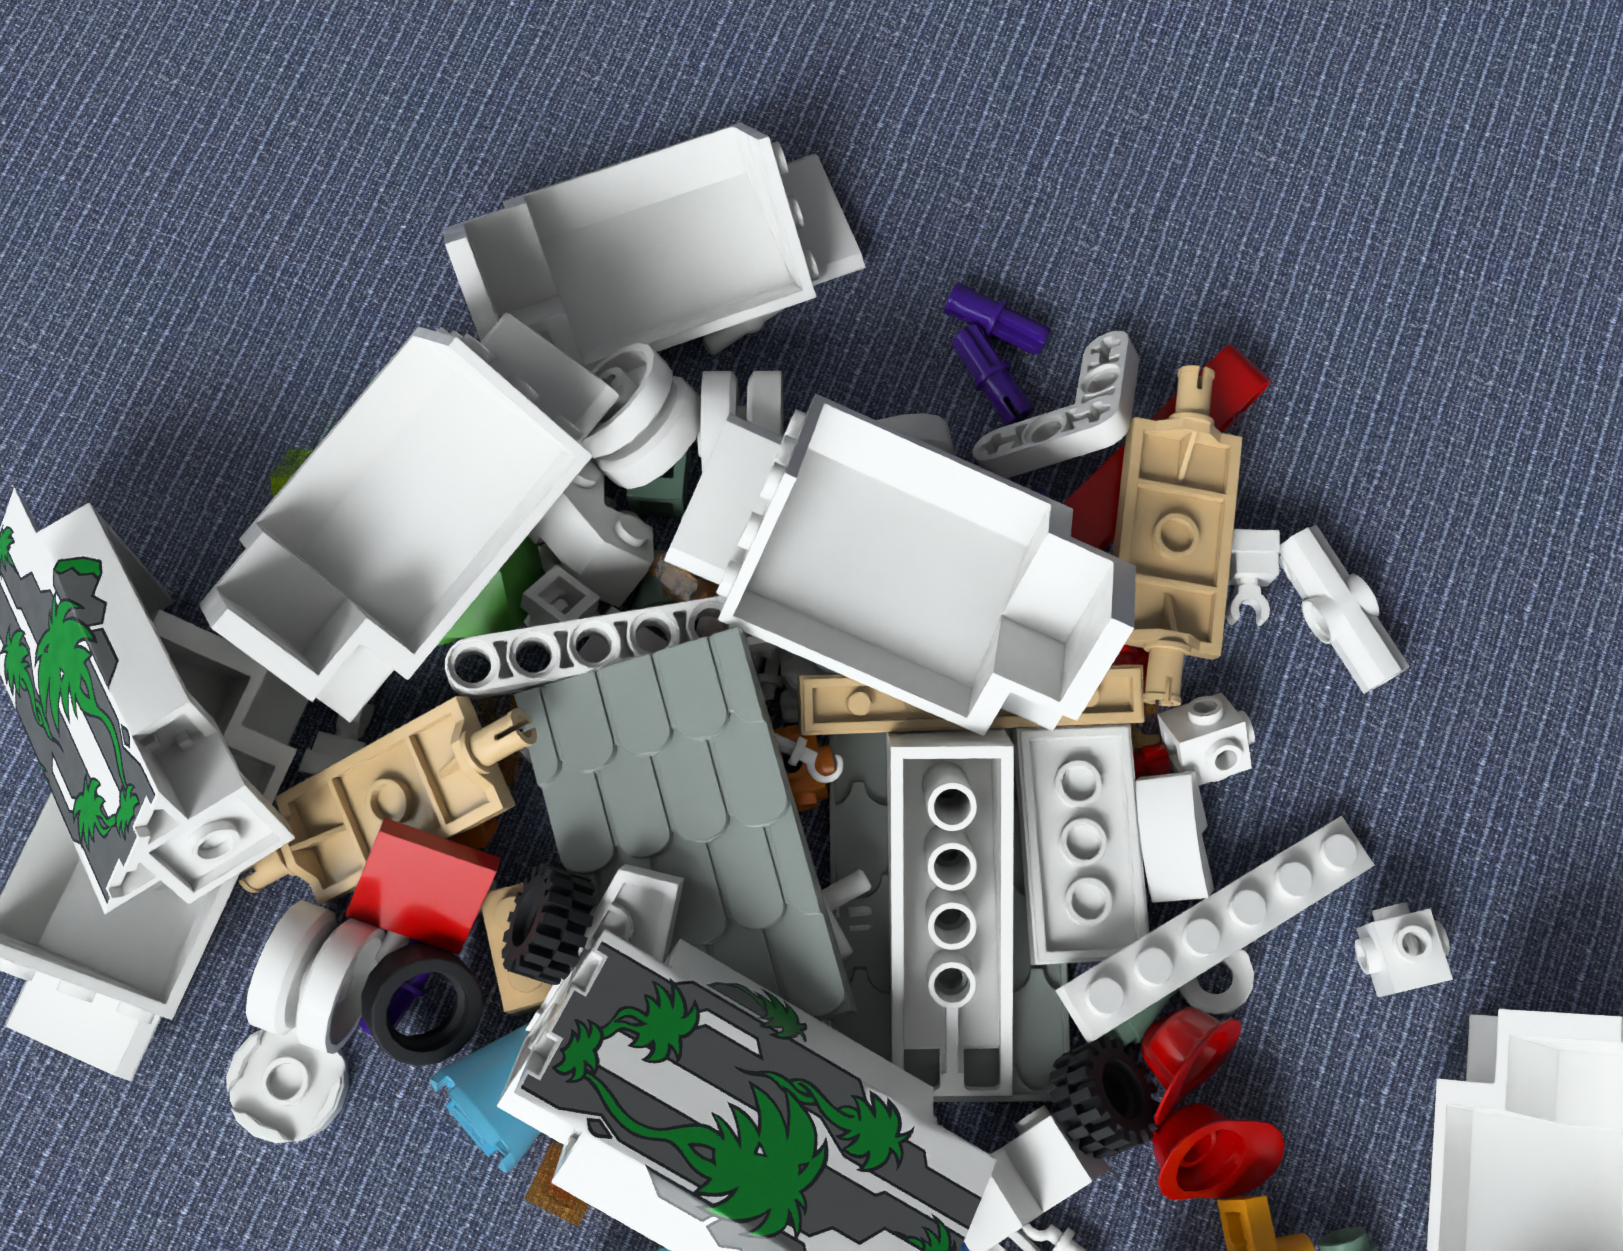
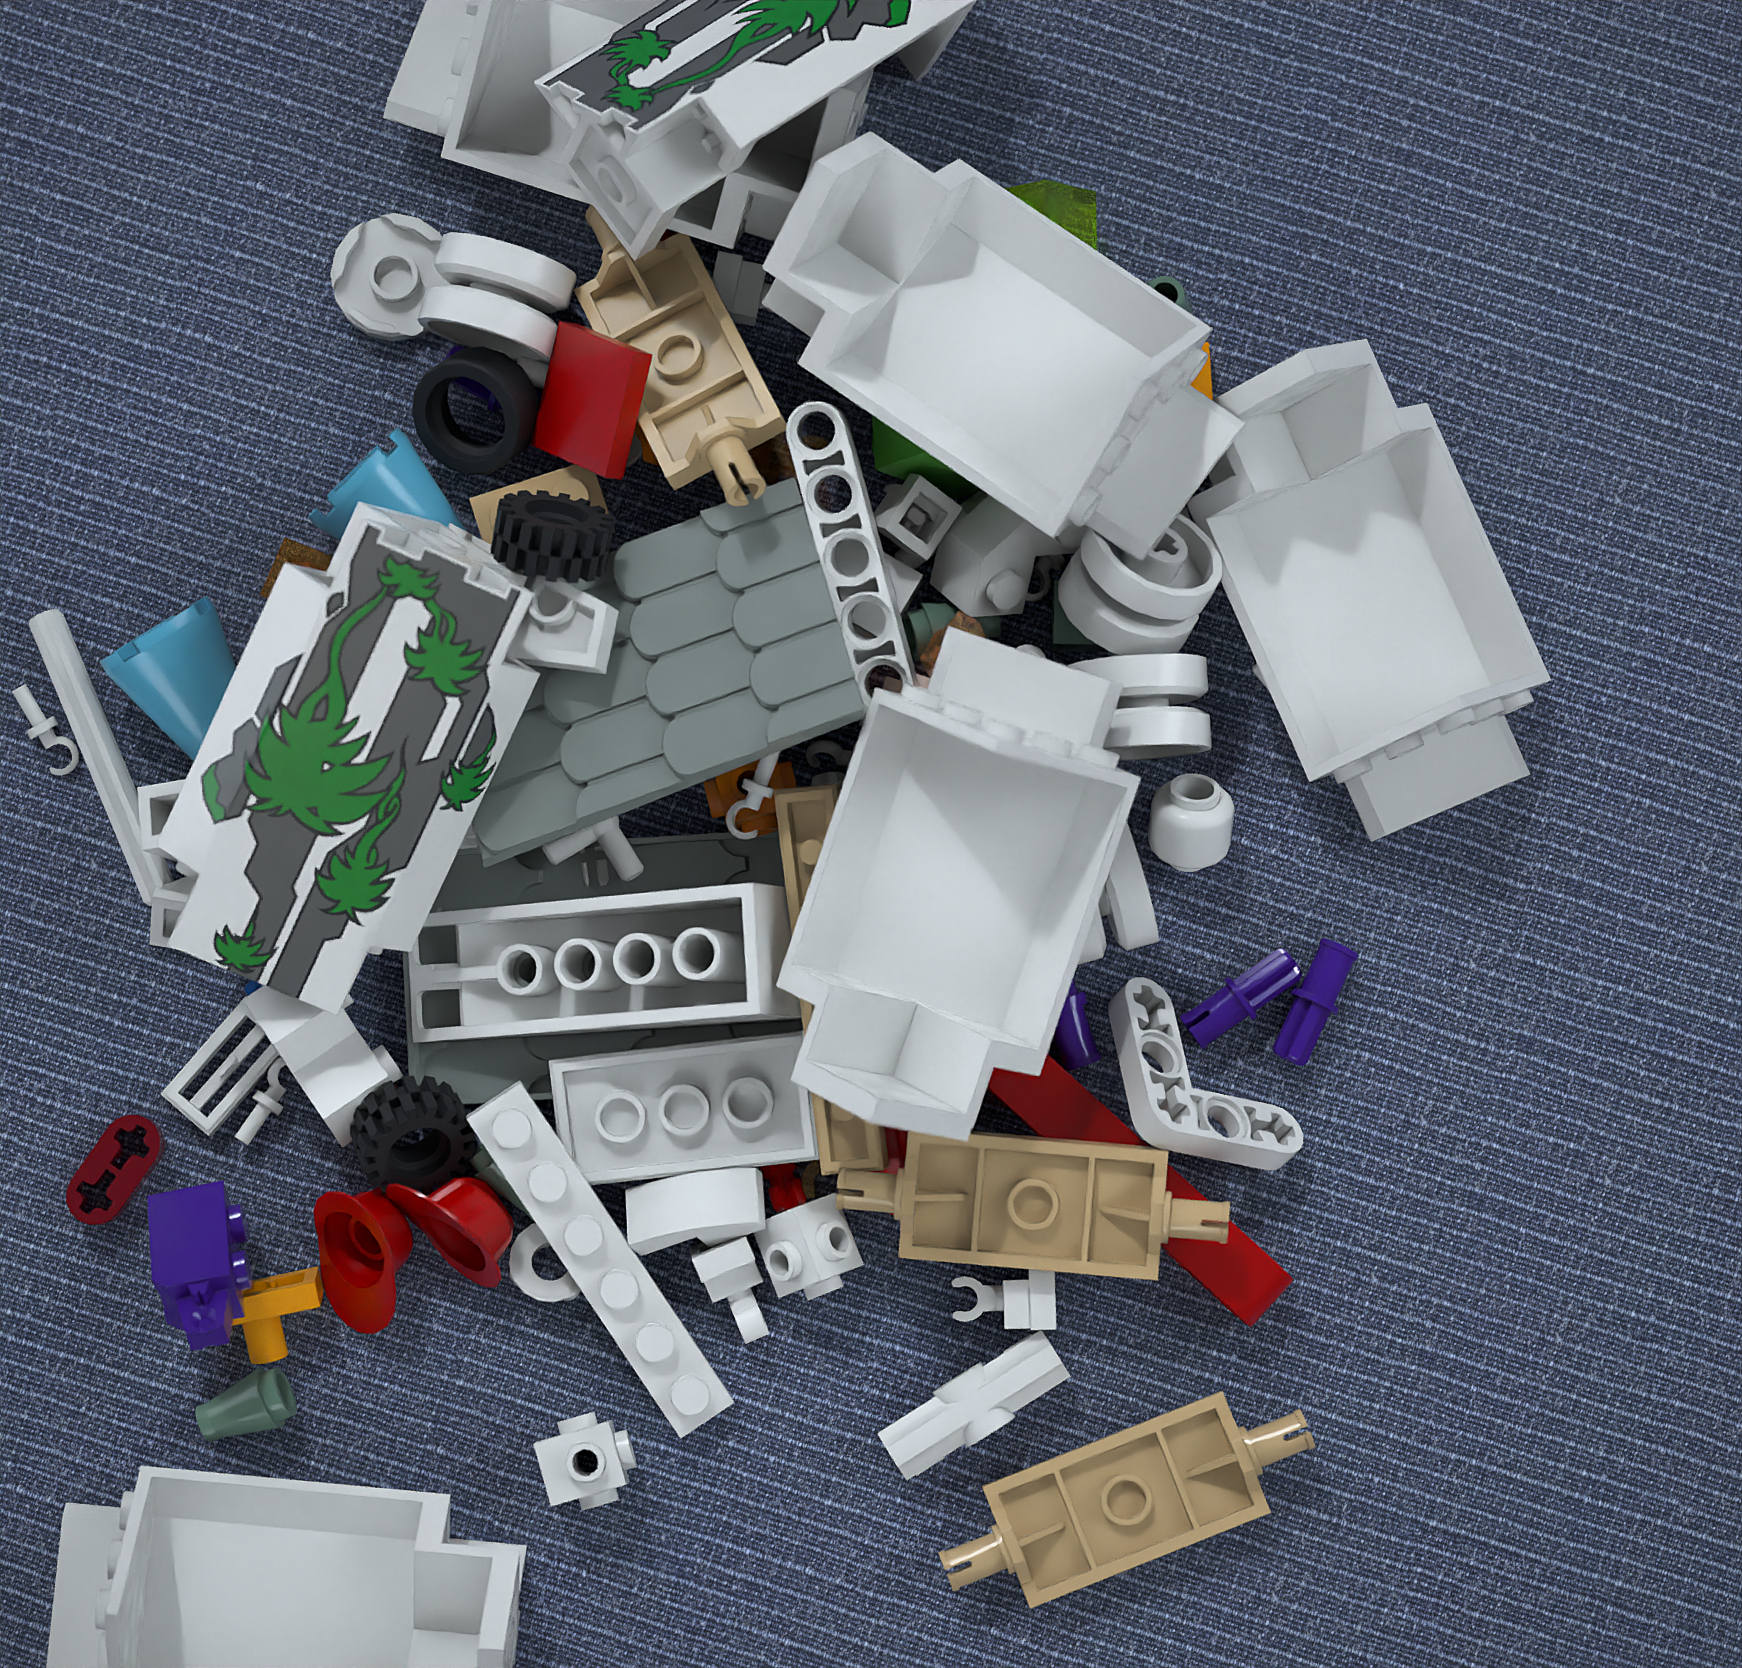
camera: 85 degrees right, 10 degrees up
(847, 387) = (1191, 822): none -> white head
(1231, 812) = (730, 1272): none -> white piece
(1418, 489) = (1126, 1499): none -> tan plate

